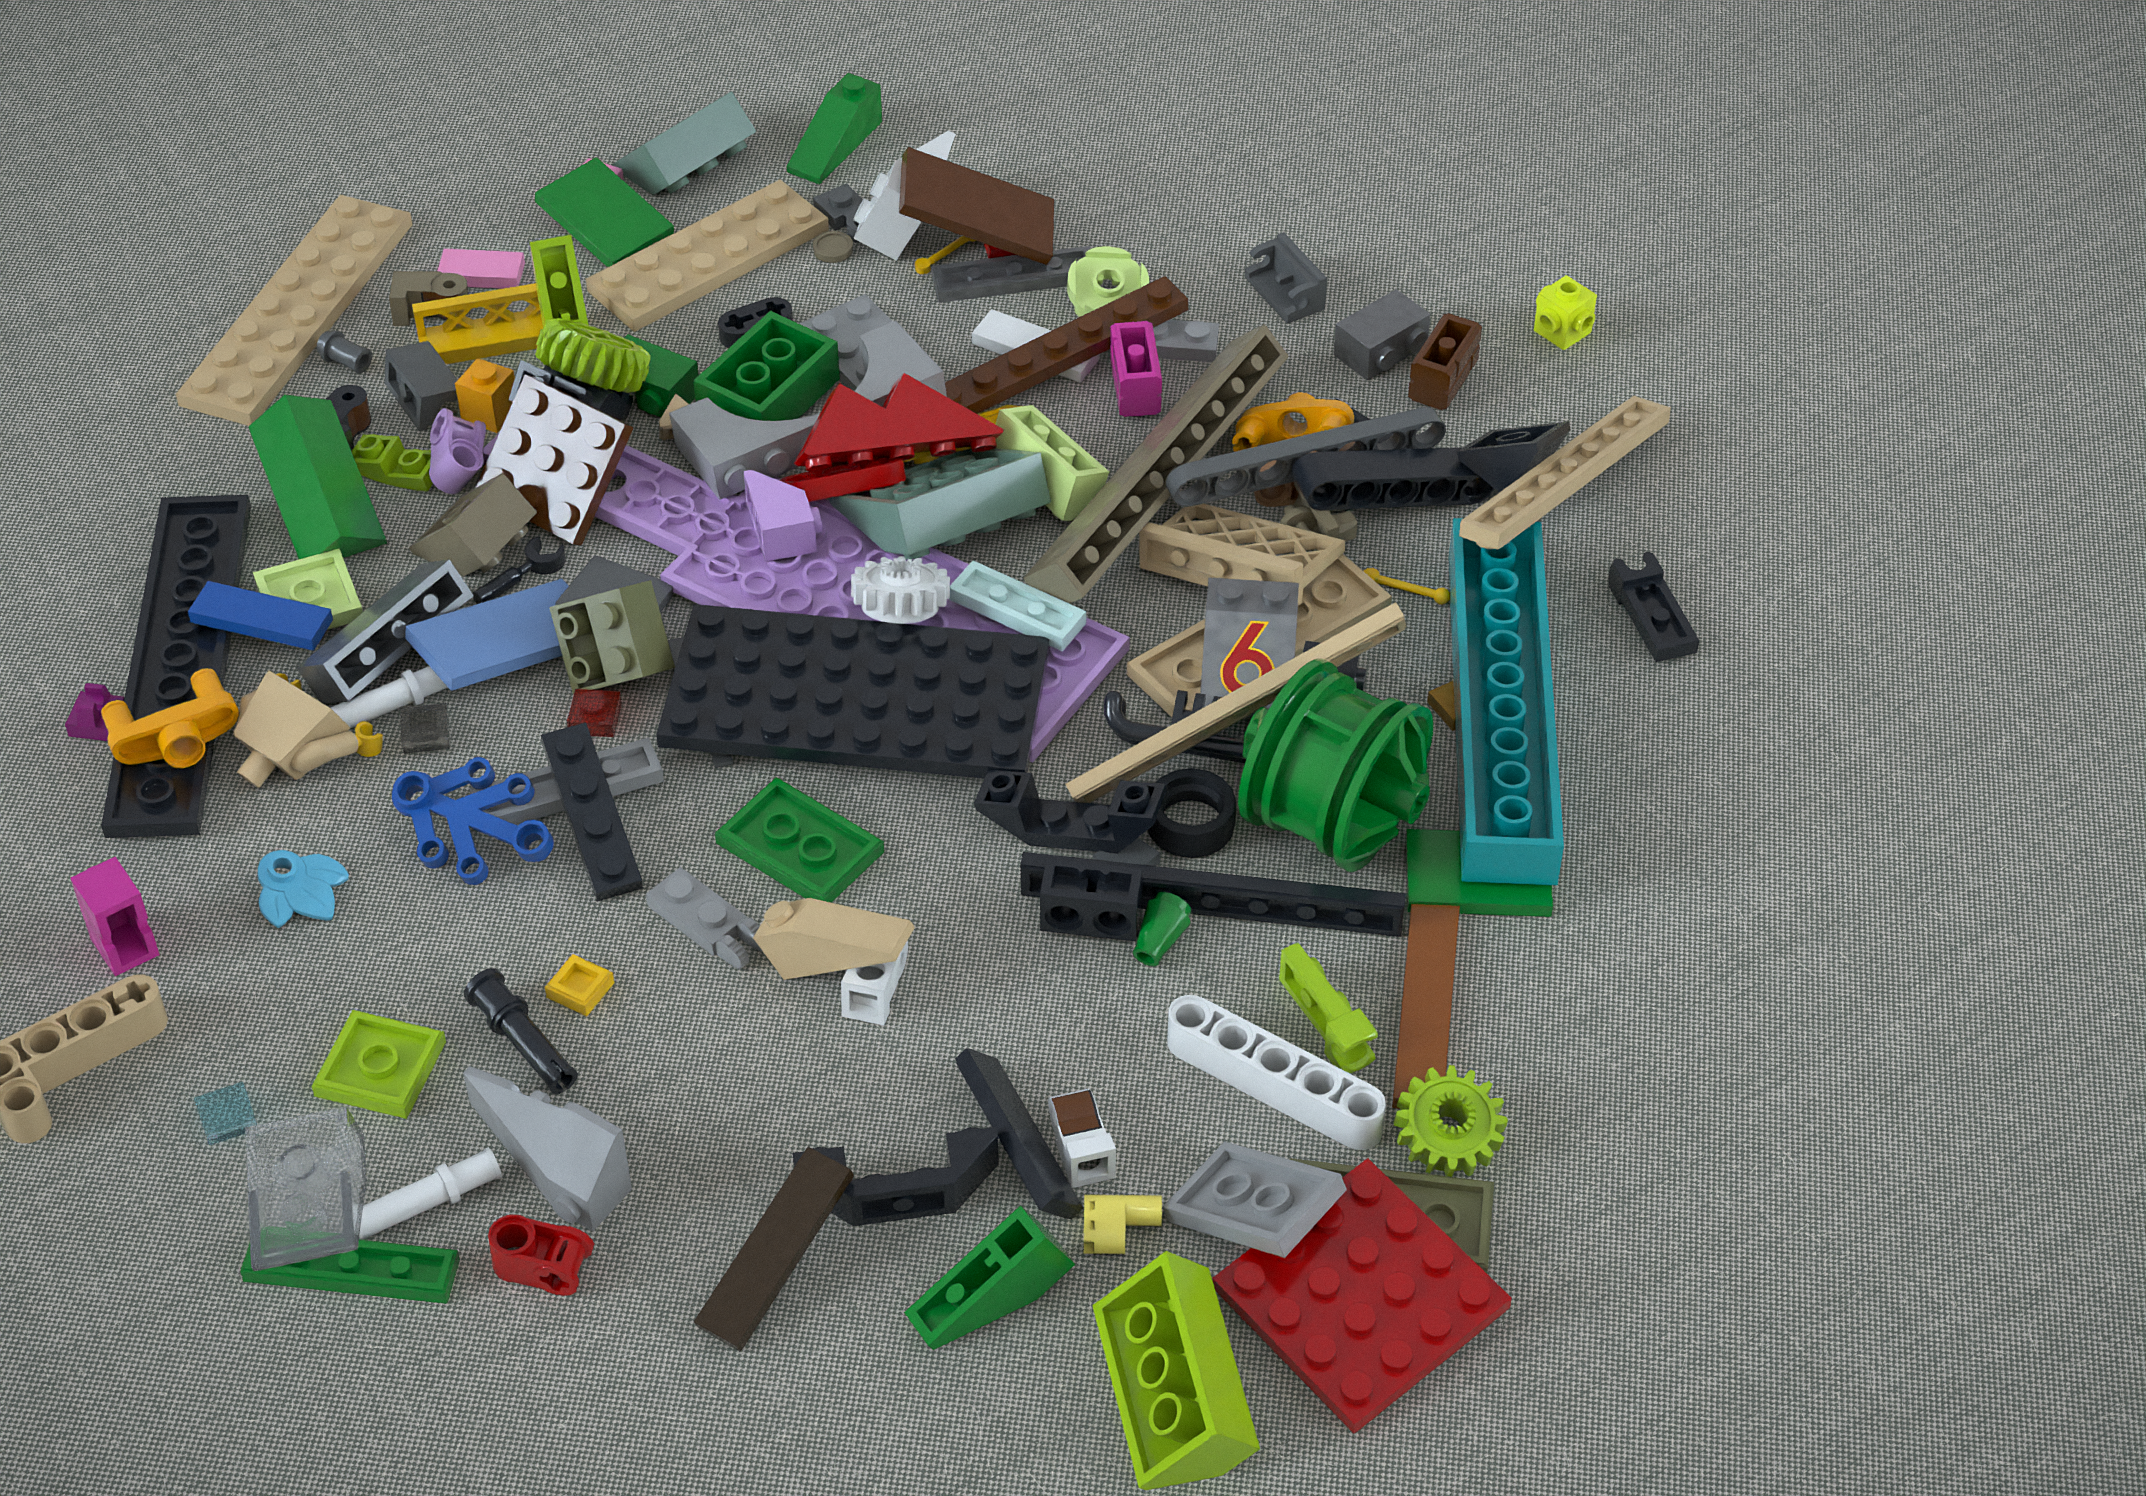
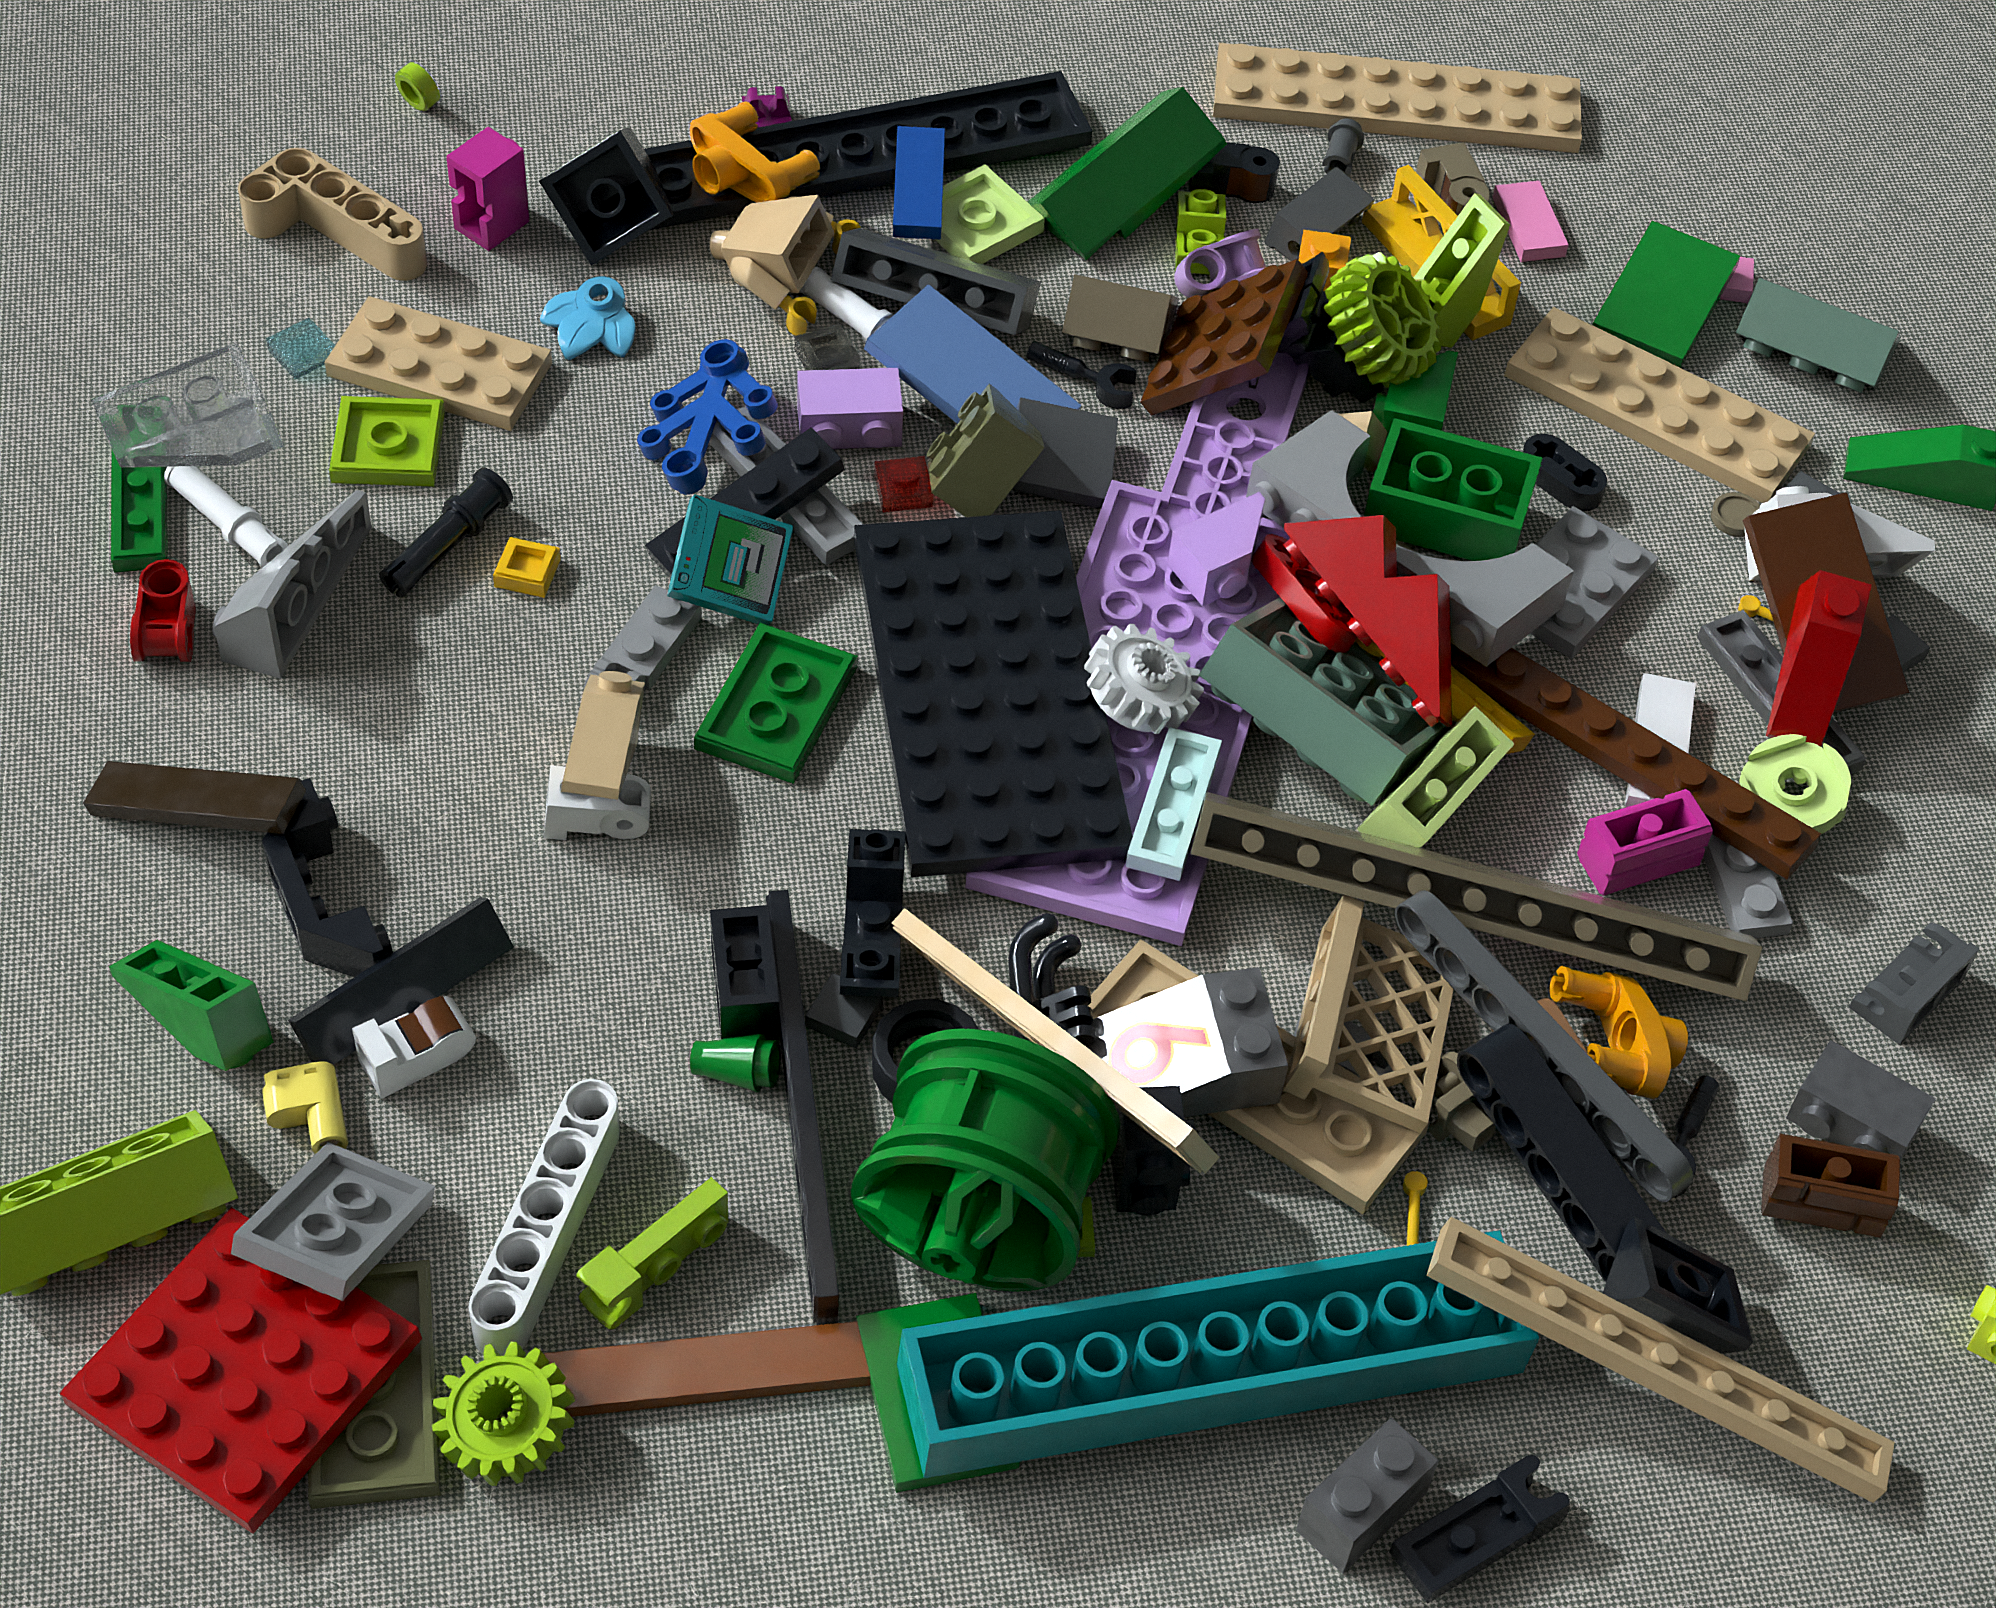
camera: 70 degrees right, 5 degrees up
(167, 829) = (608, 195): none -> black slope
(295, 1010) = (438, 358): none -> tan plate
(504, 722) = (851, 406): none -> lavender brick
(653, 828) = (730, 560): none -> tile
(1020, 217) = (1817, 654): none -> red slope
(1621, 654) = (1366, 1495): none -> flat silver brick

